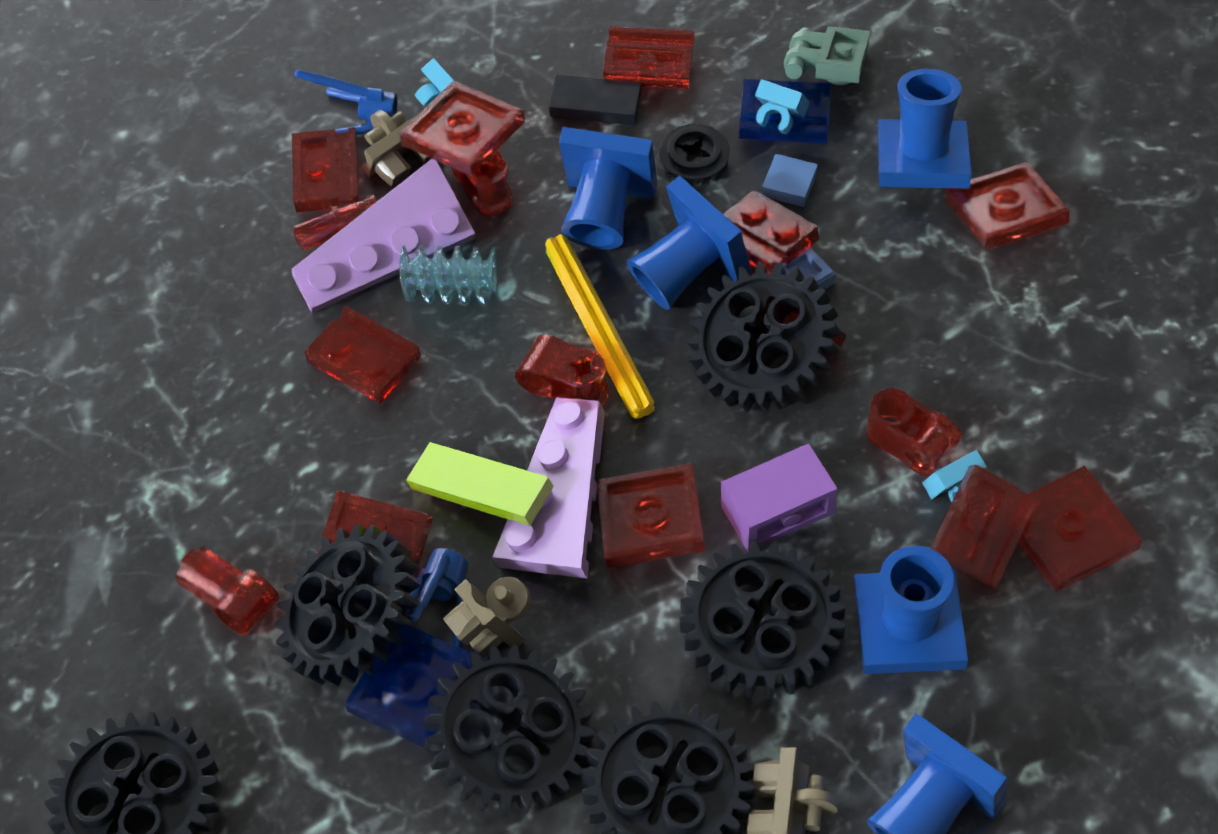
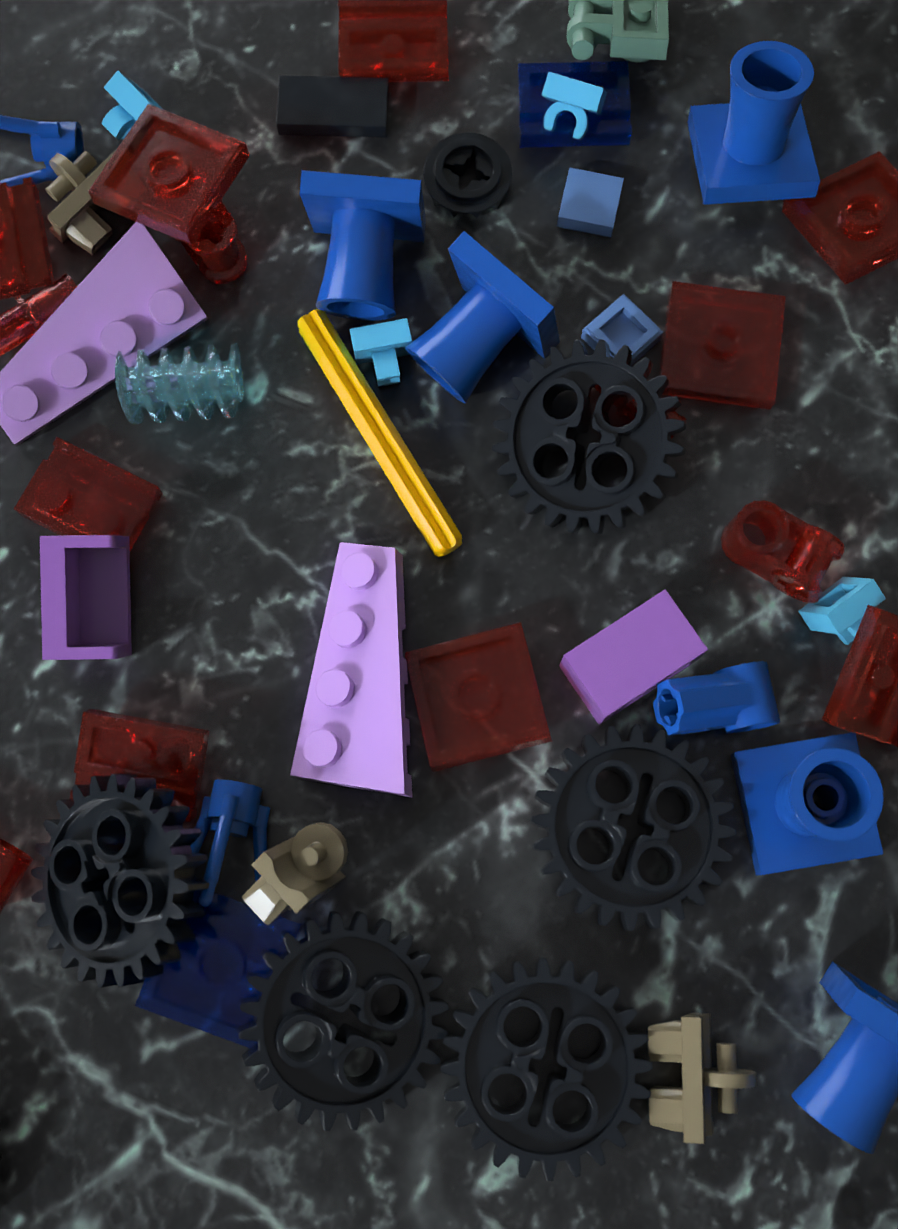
camera: 10 degrees left, 20 degrees up
(352, 412) = (85, 597): none -> medium lavender panel
(480, 483) = (262, 679): tile -> none
(560, 369) = (335, 506): clear red piece -> none
(608, 263) = (382, 345): none -> medium azure tile
(771, 230) = (575, 280): clear red plate -> none
(857, 532) = (730, 698): none -> blue piece
(883, 287) = (722, 344): none -> clear red plate

